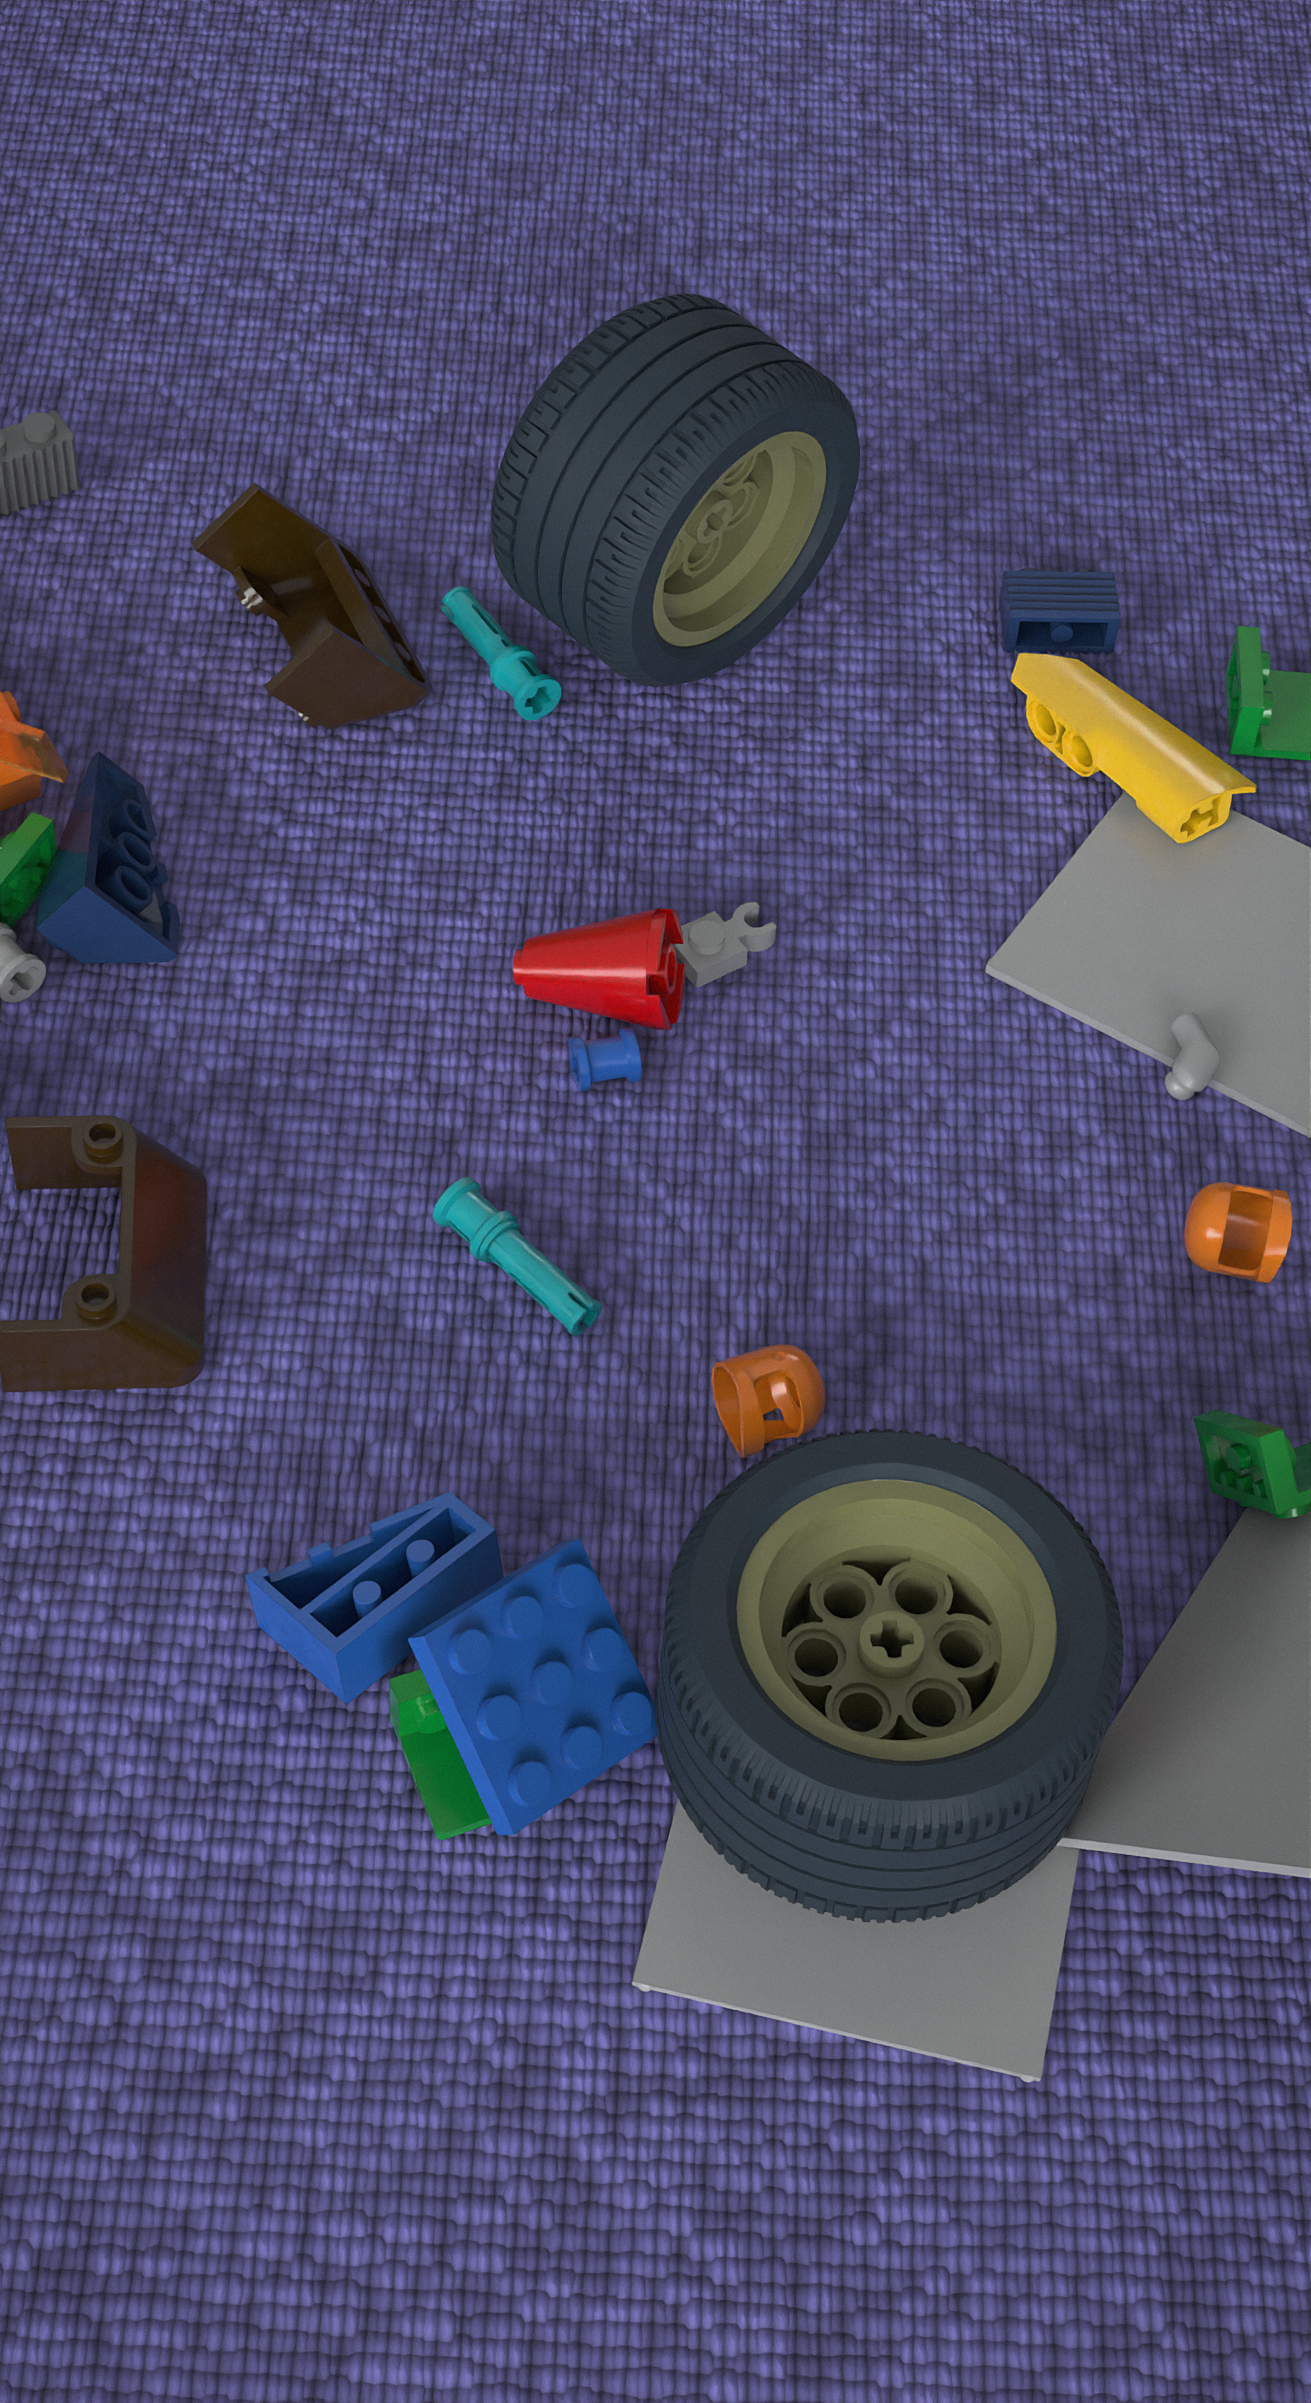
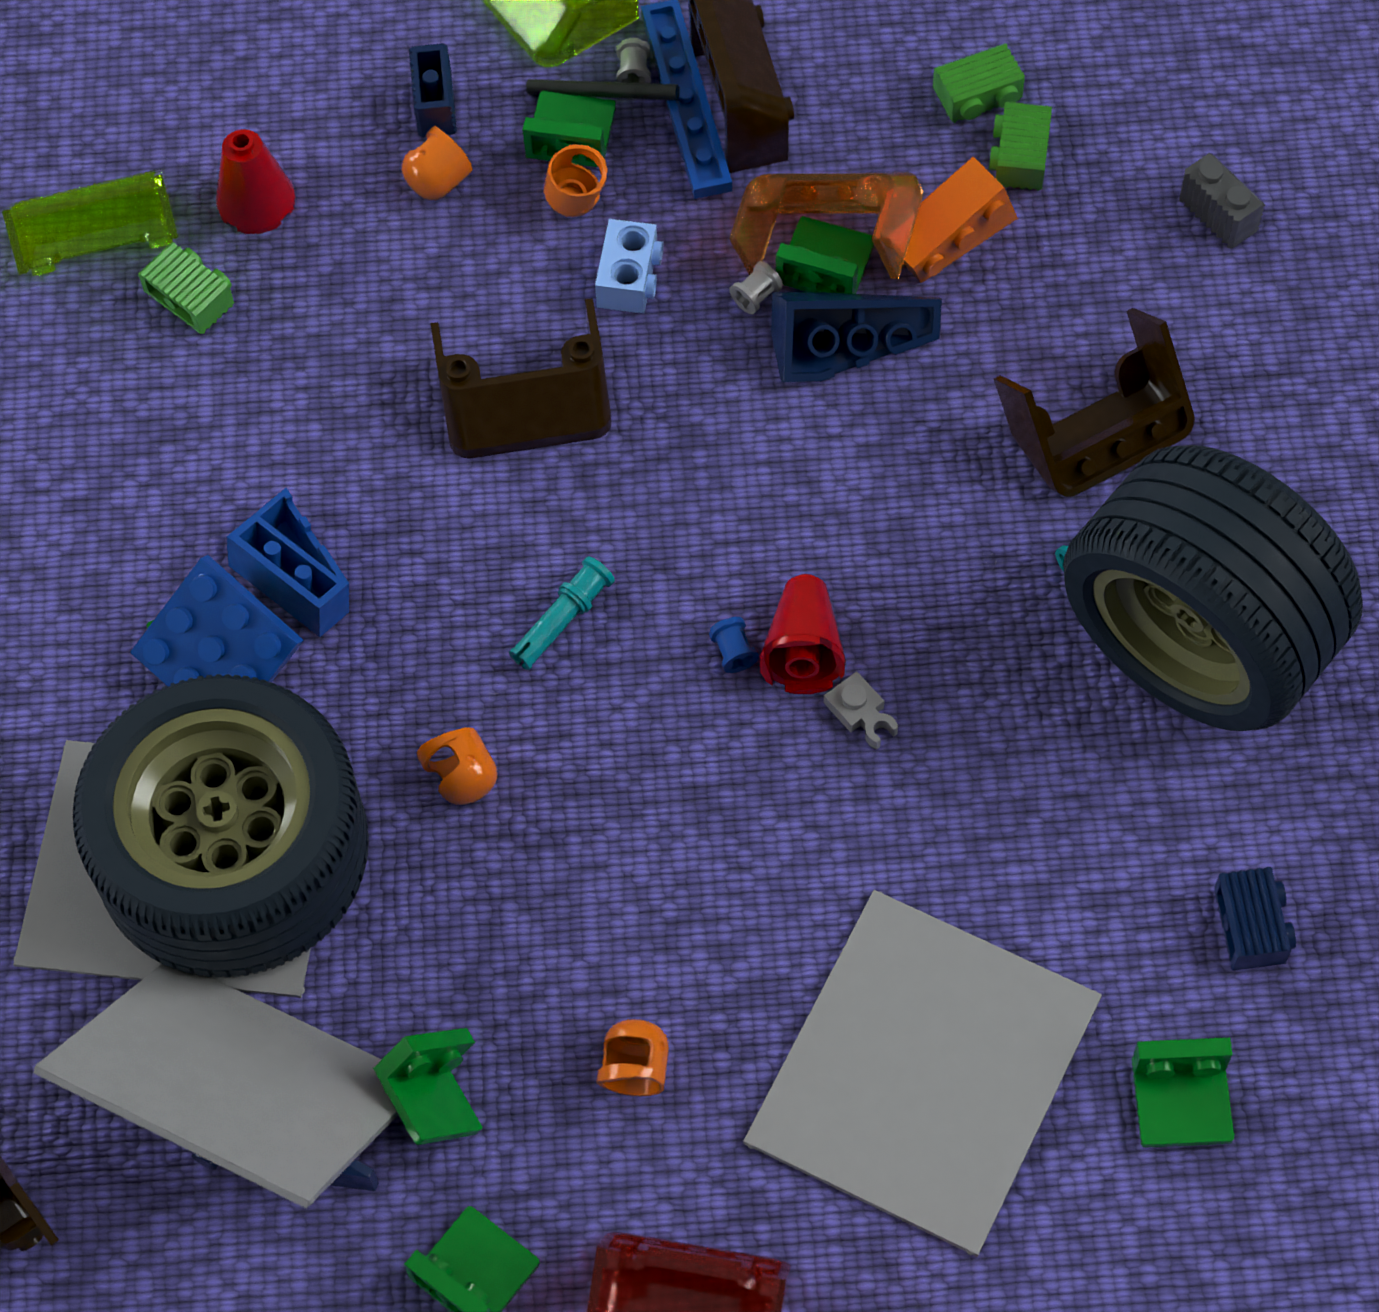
camera: 90 degrees right, 10 degrees up
(1107, 730) = (1108, 974): yellow panel -> none
(1196, 1060) = (799, 1034): light grey arm -> none

